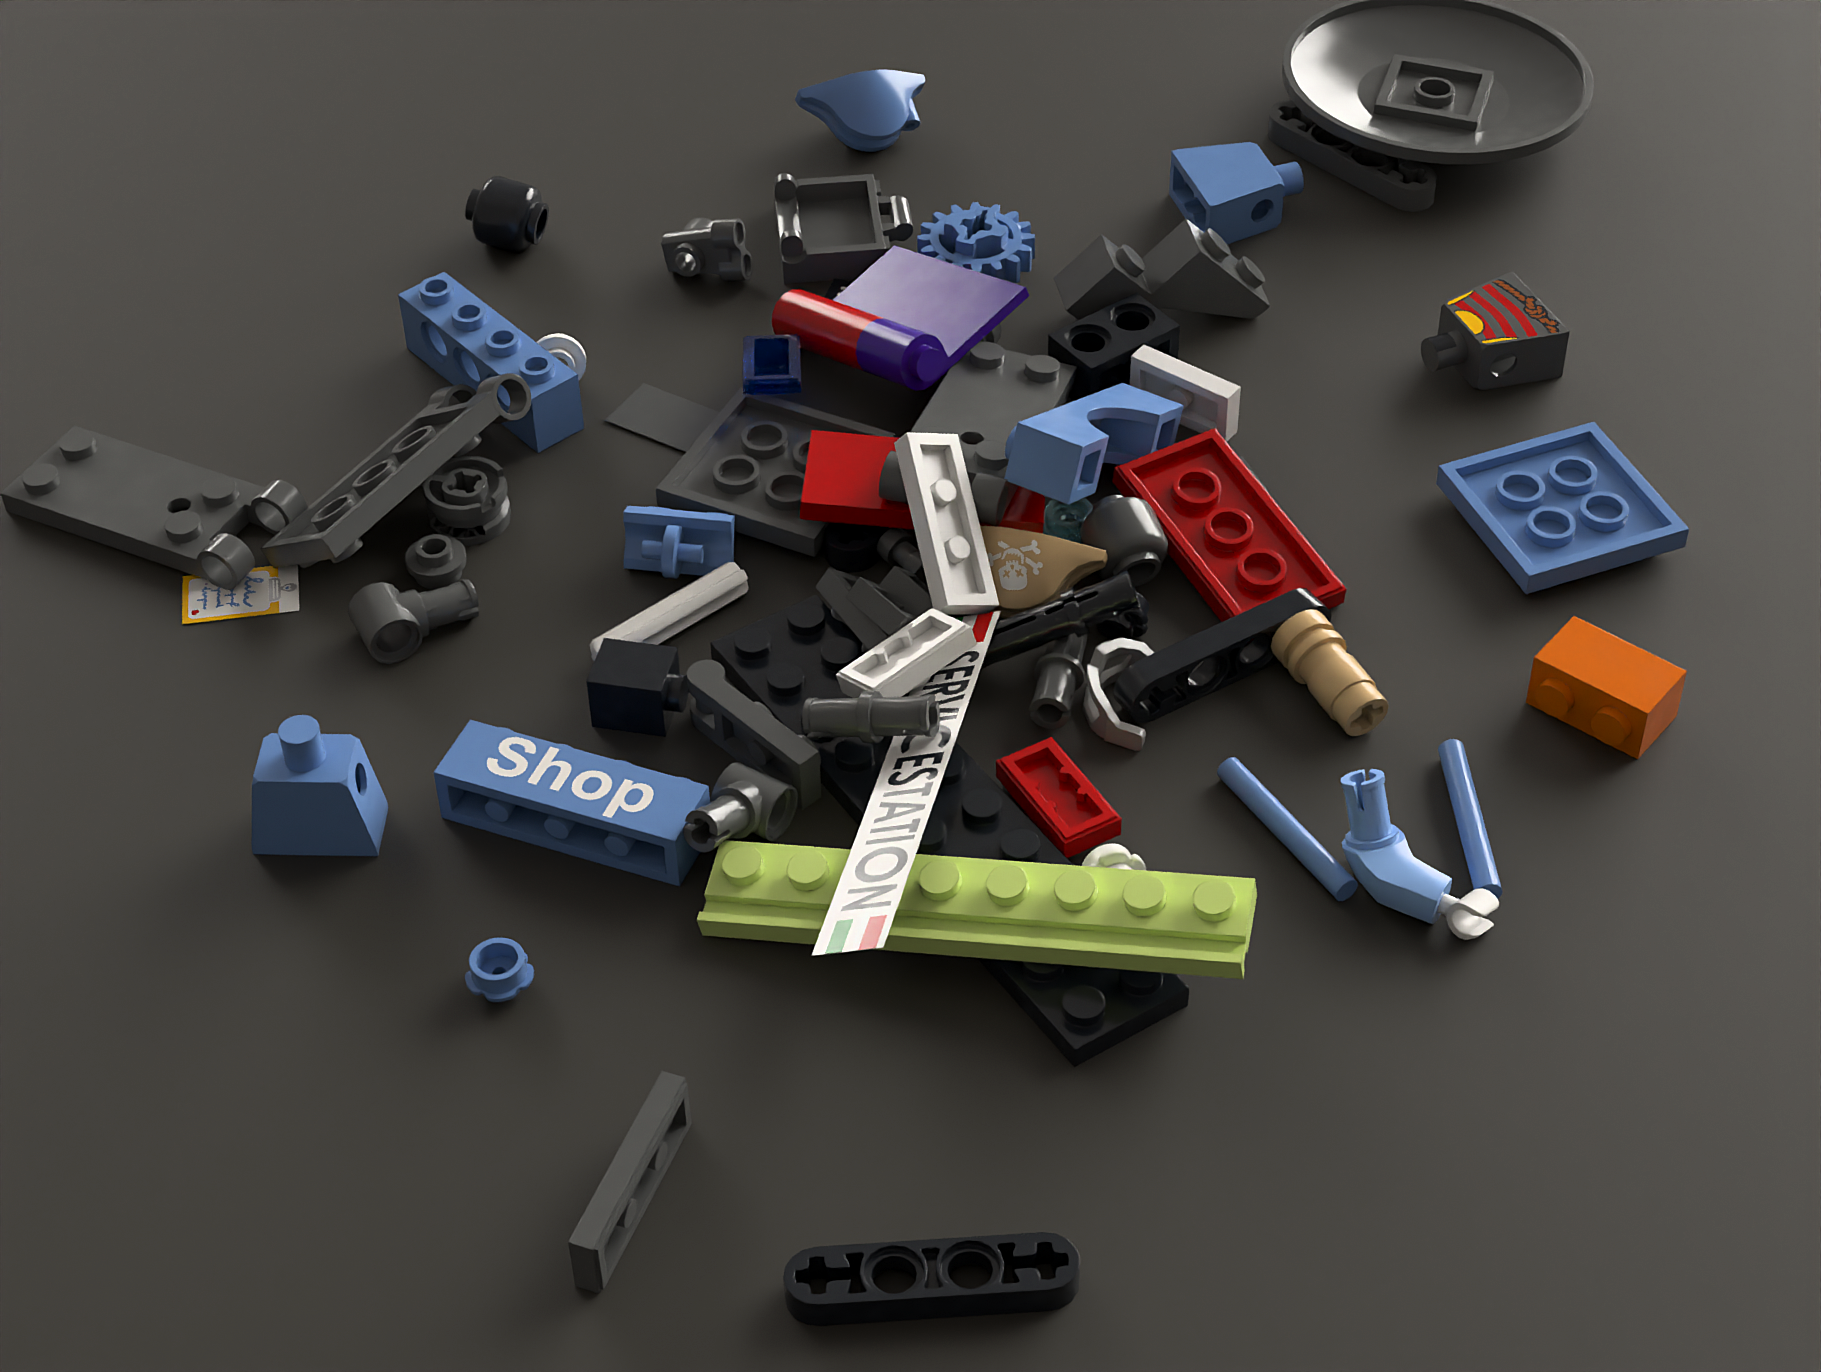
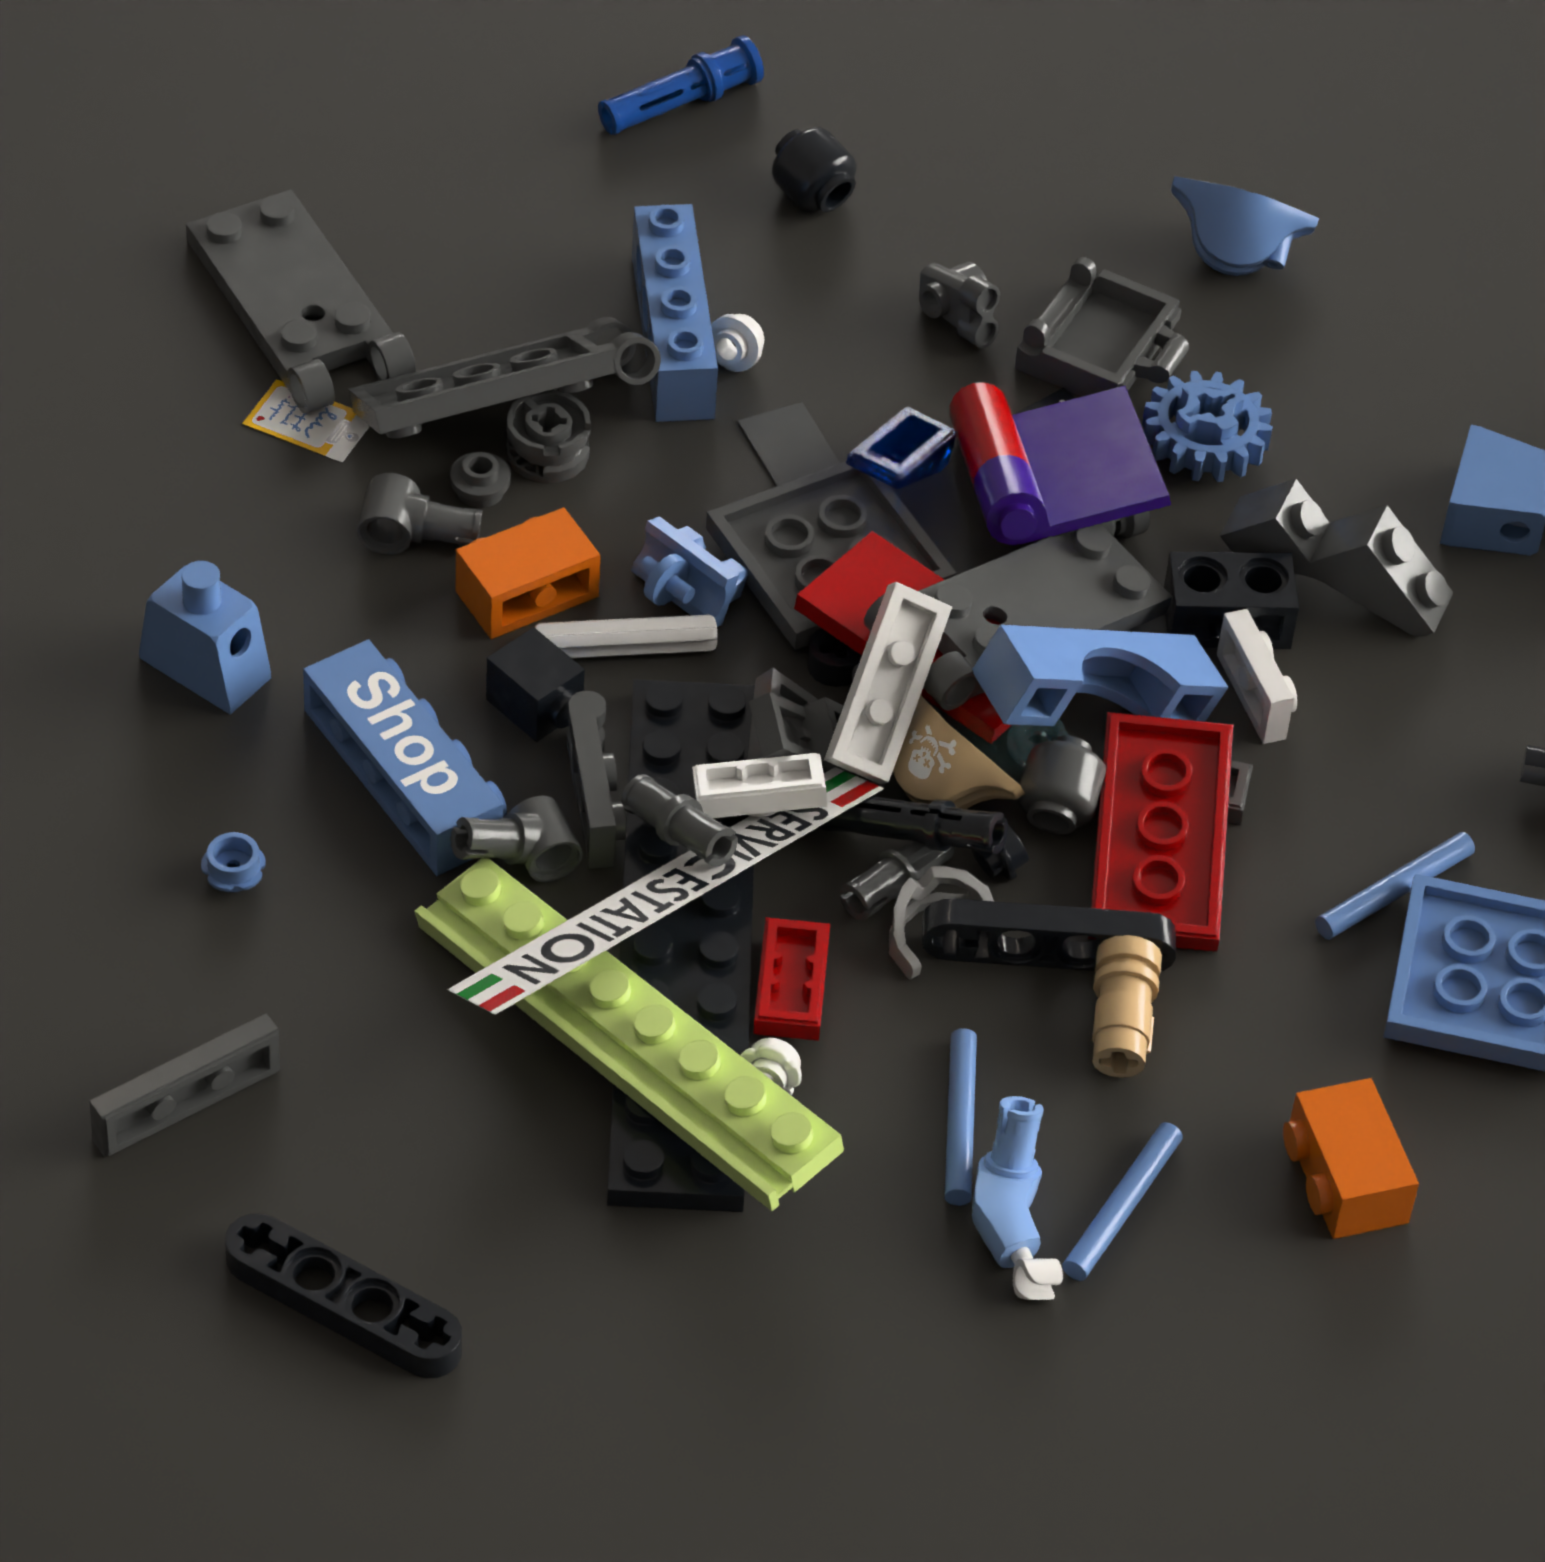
camera: 30 degrees right, 5 degrees up
(354, 196) = (702, 78): none -> blue pin
(547, 607) = (527, 572): none -> orange brick
(1422, 487) = (1393, 885): none -> medium blue bar

